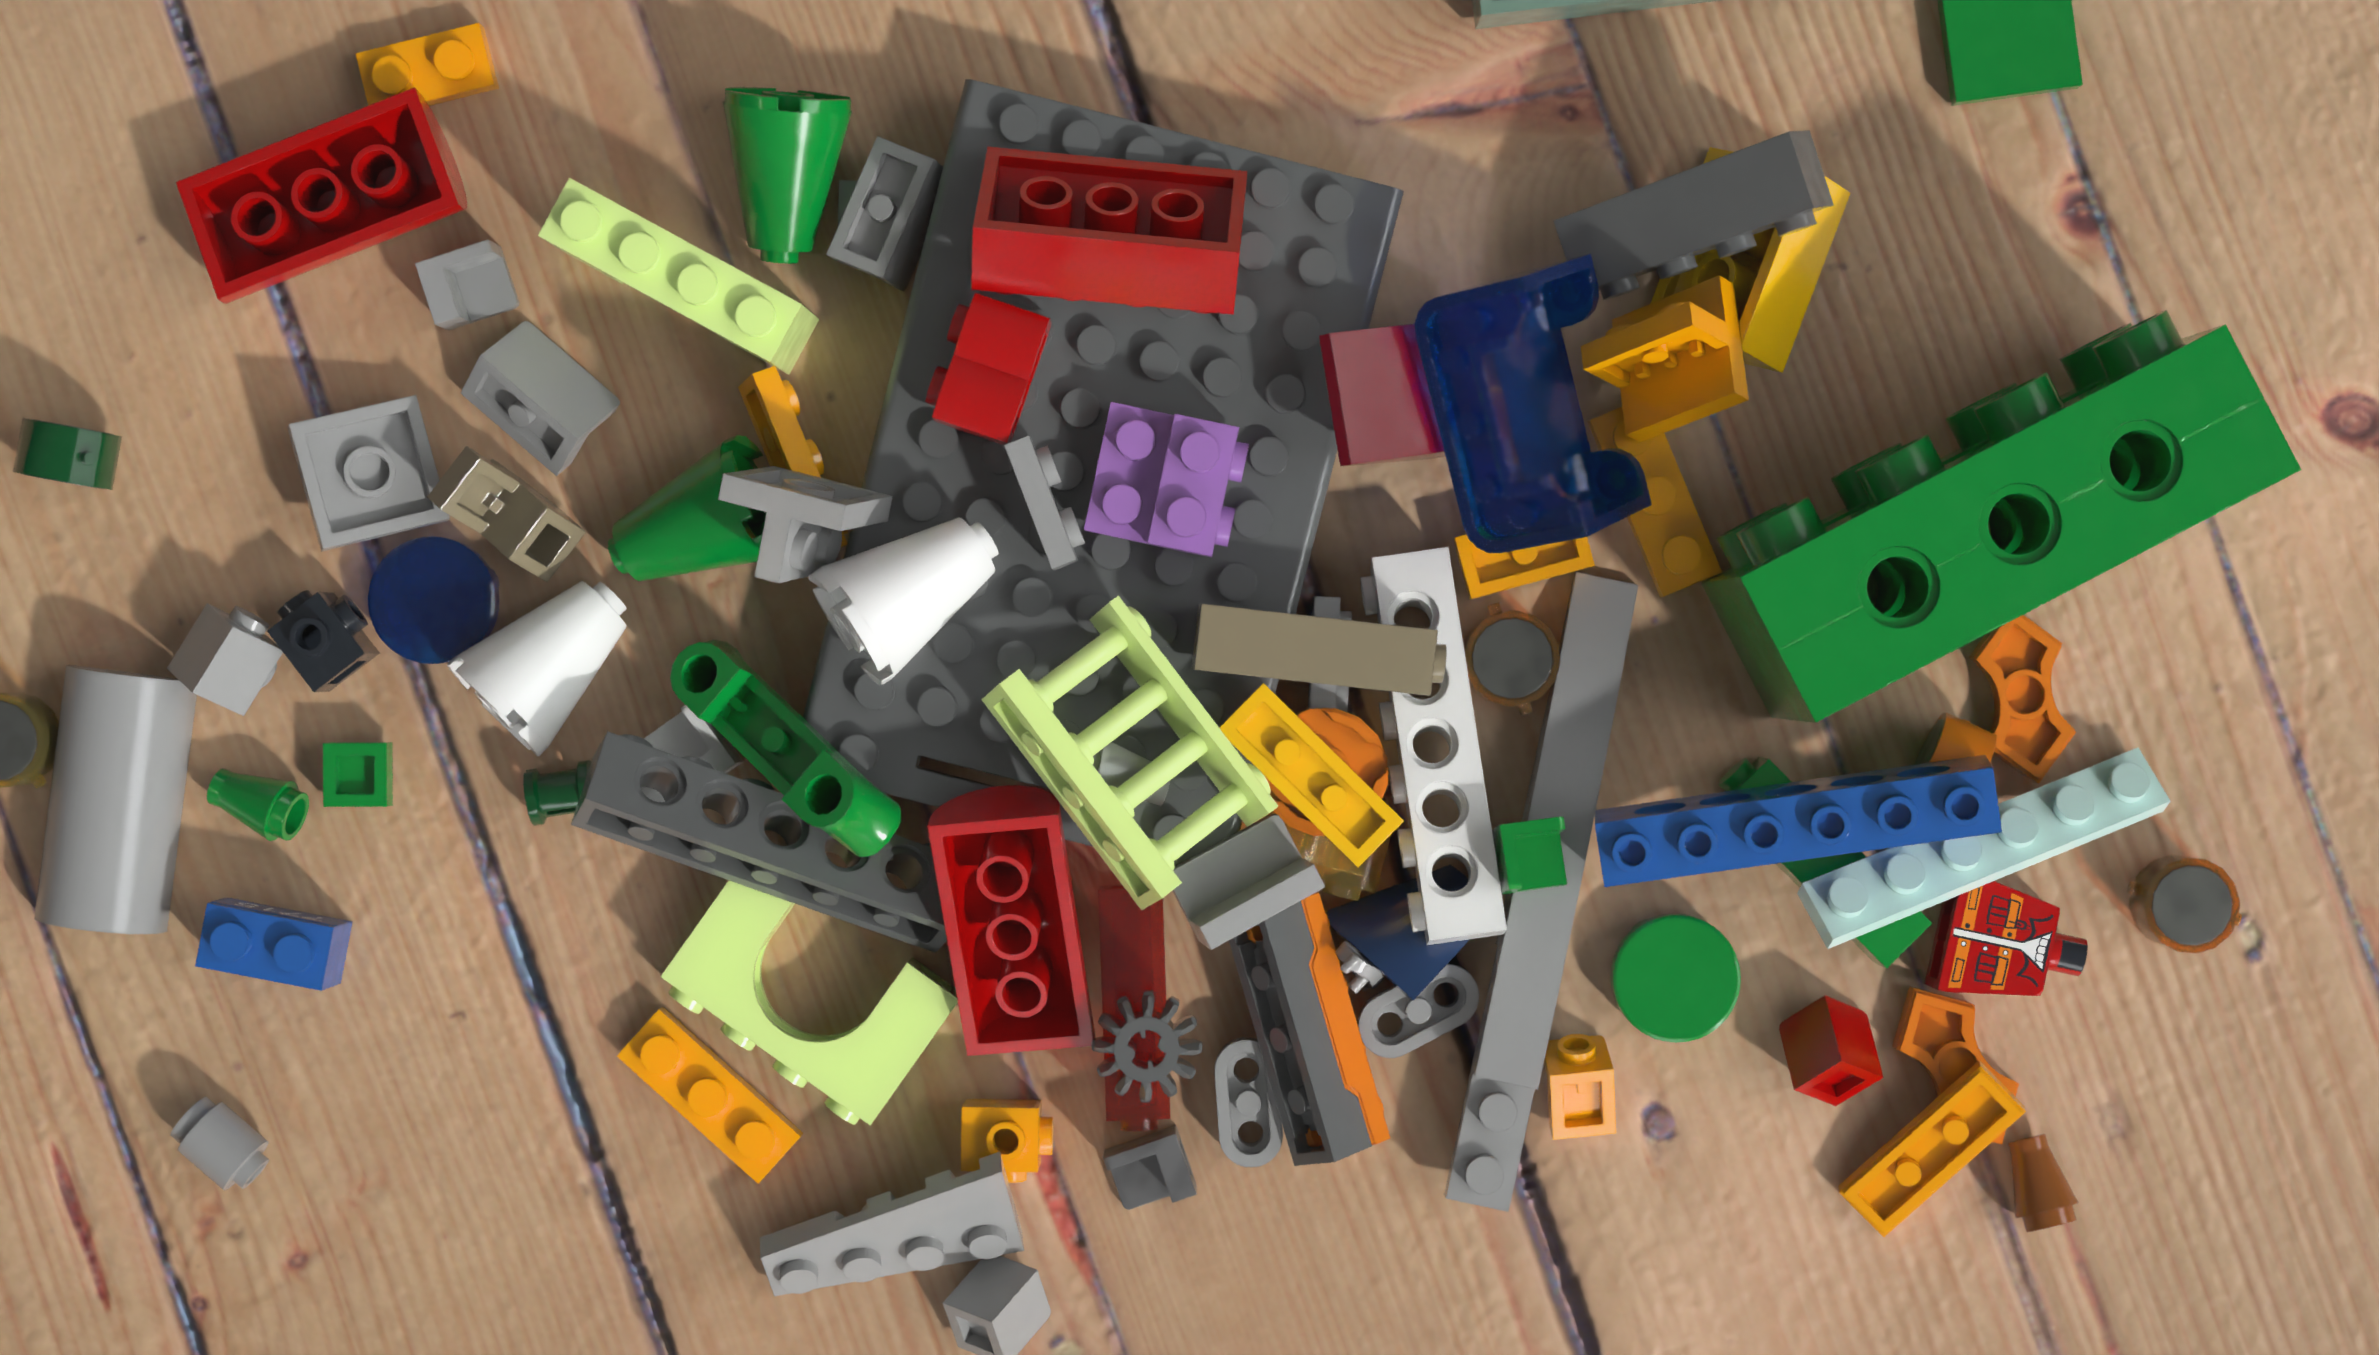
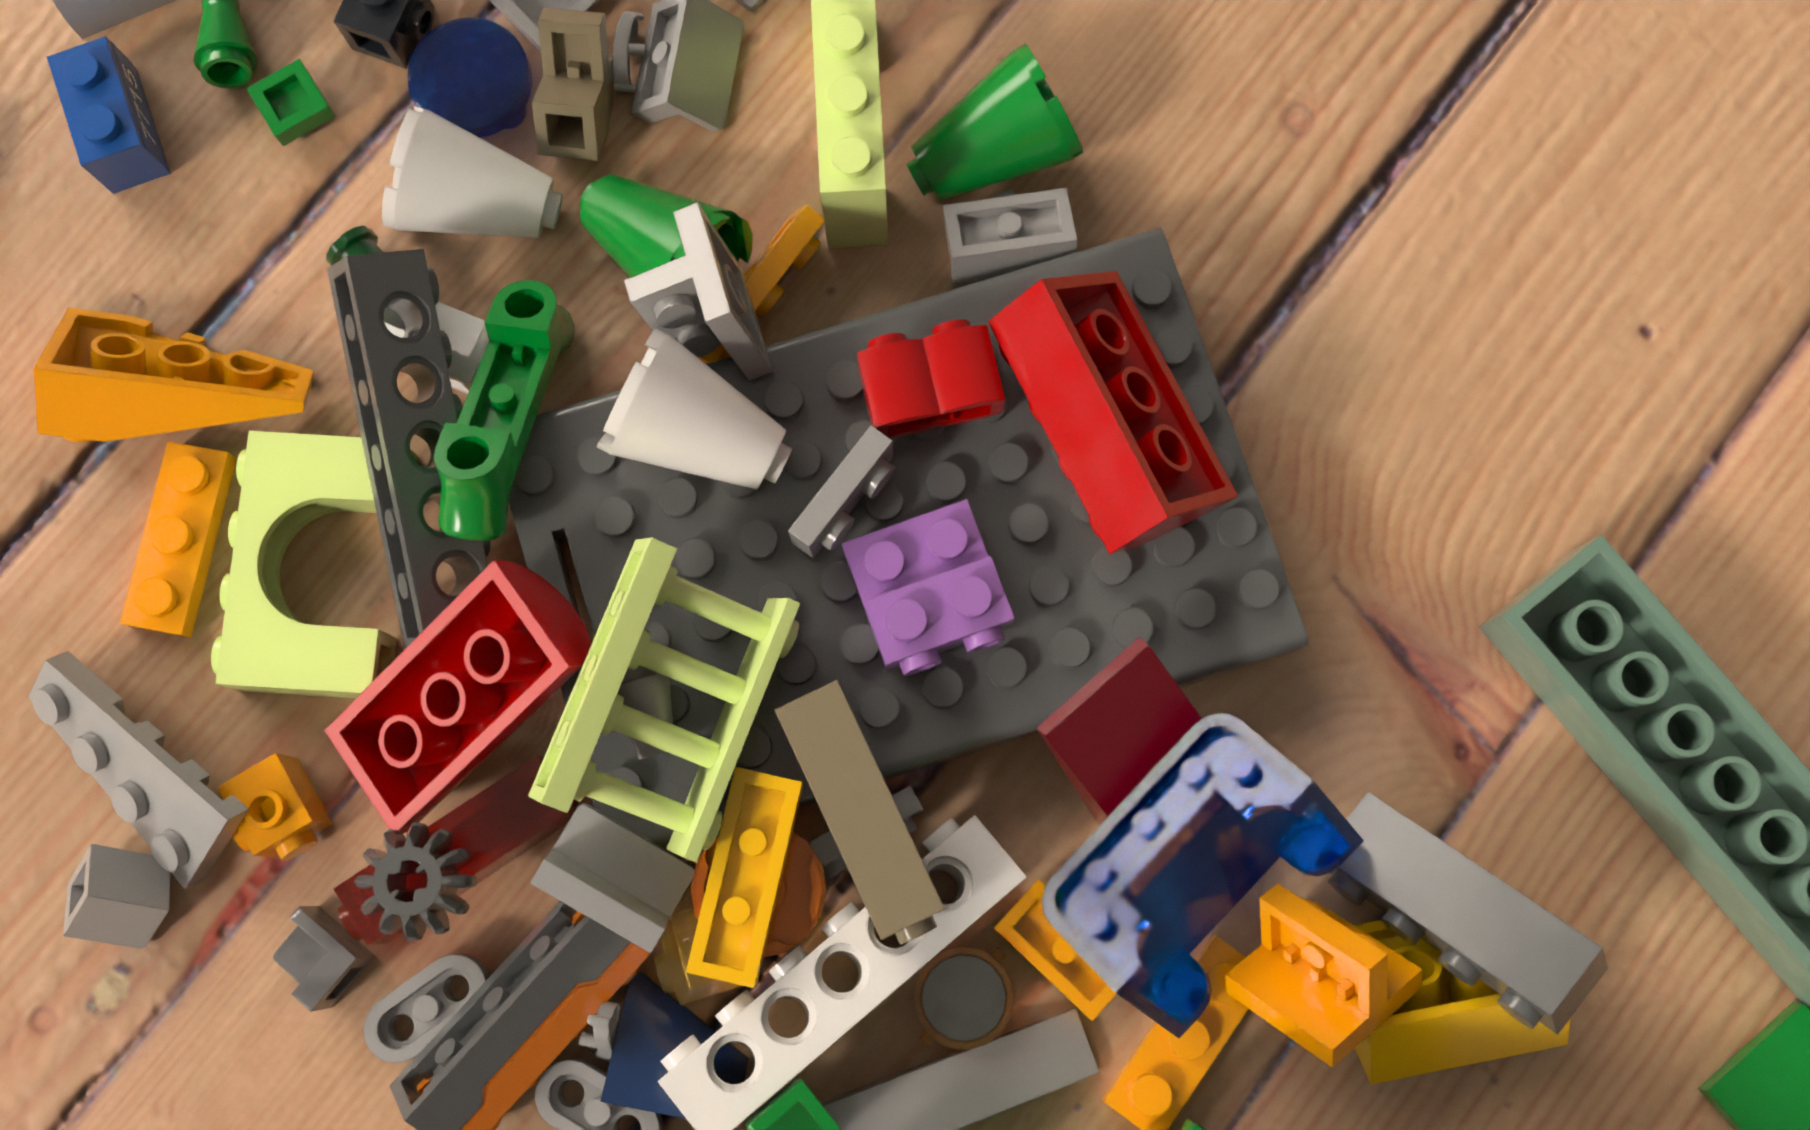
camera: 65 degrees right, 10 degrees down
(492, 445) = (624, 46): none -> light grey piece
(549, 1049) = (119, 381): none -> light orange wedge

